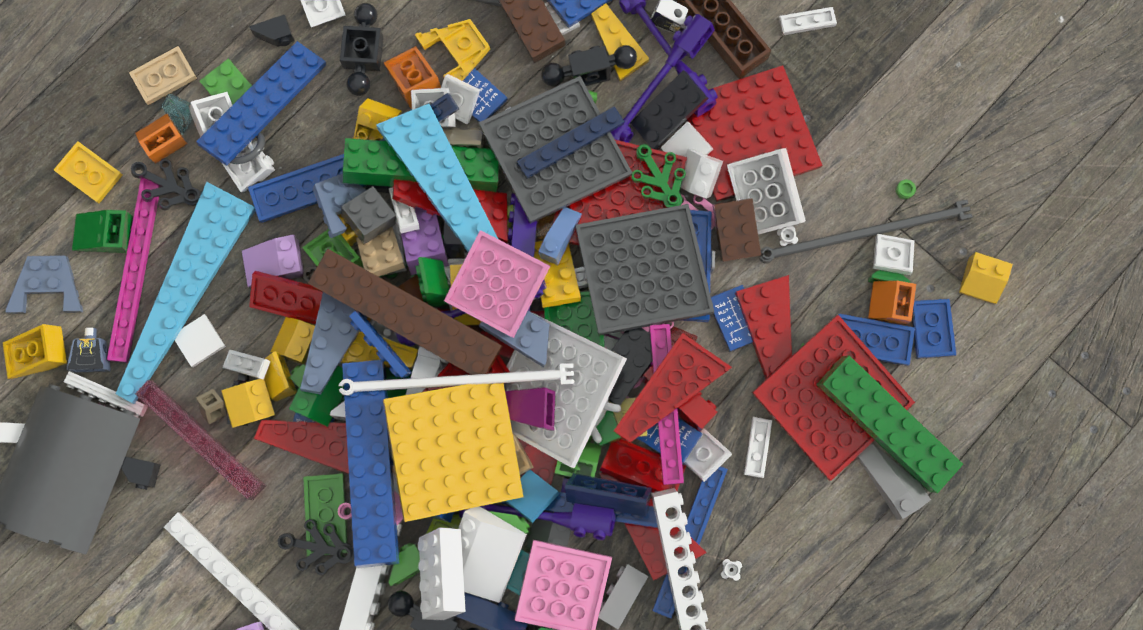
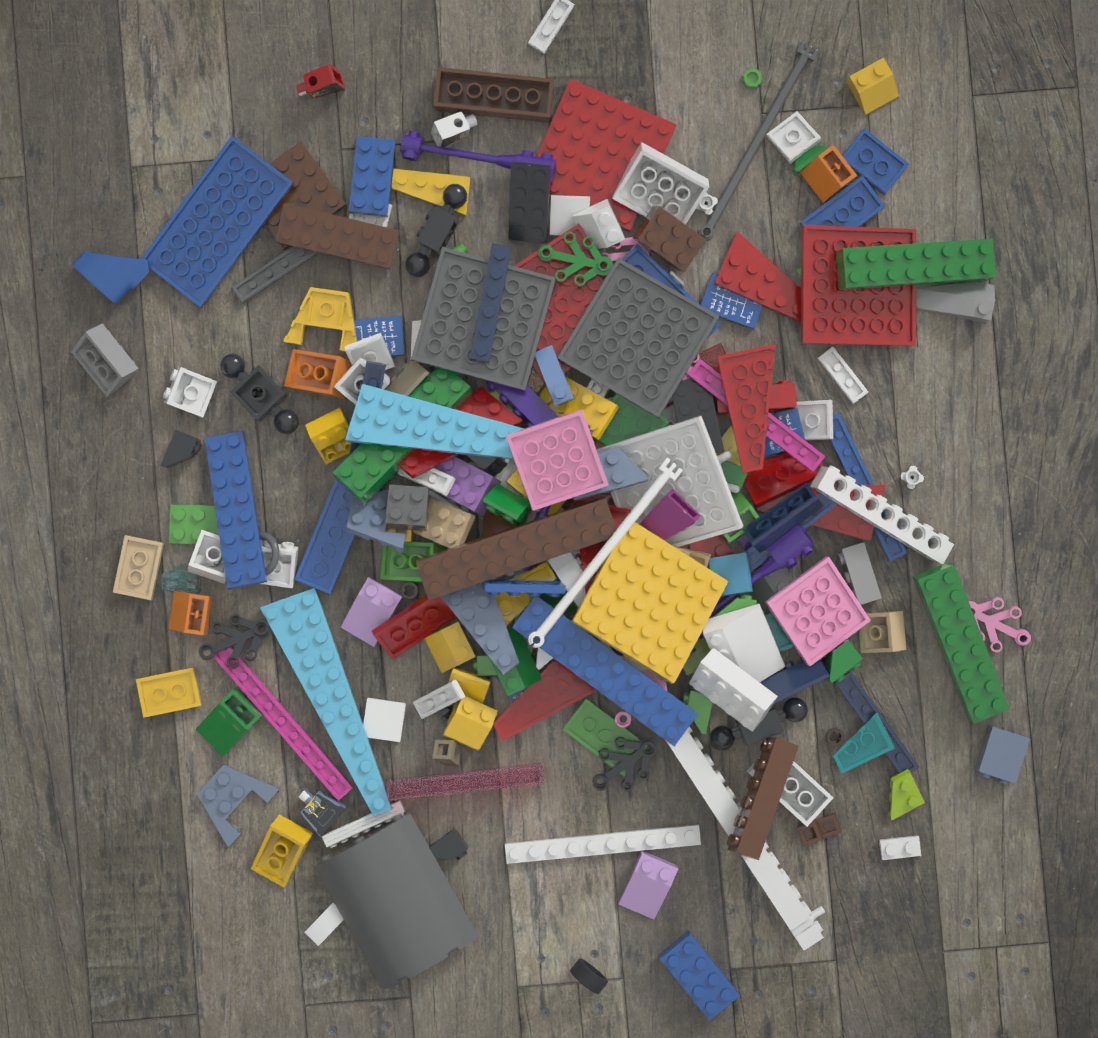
camera: 40 degrees left, 10 degrees up
(686, 44) = (489, 139): dark purple bar -> none

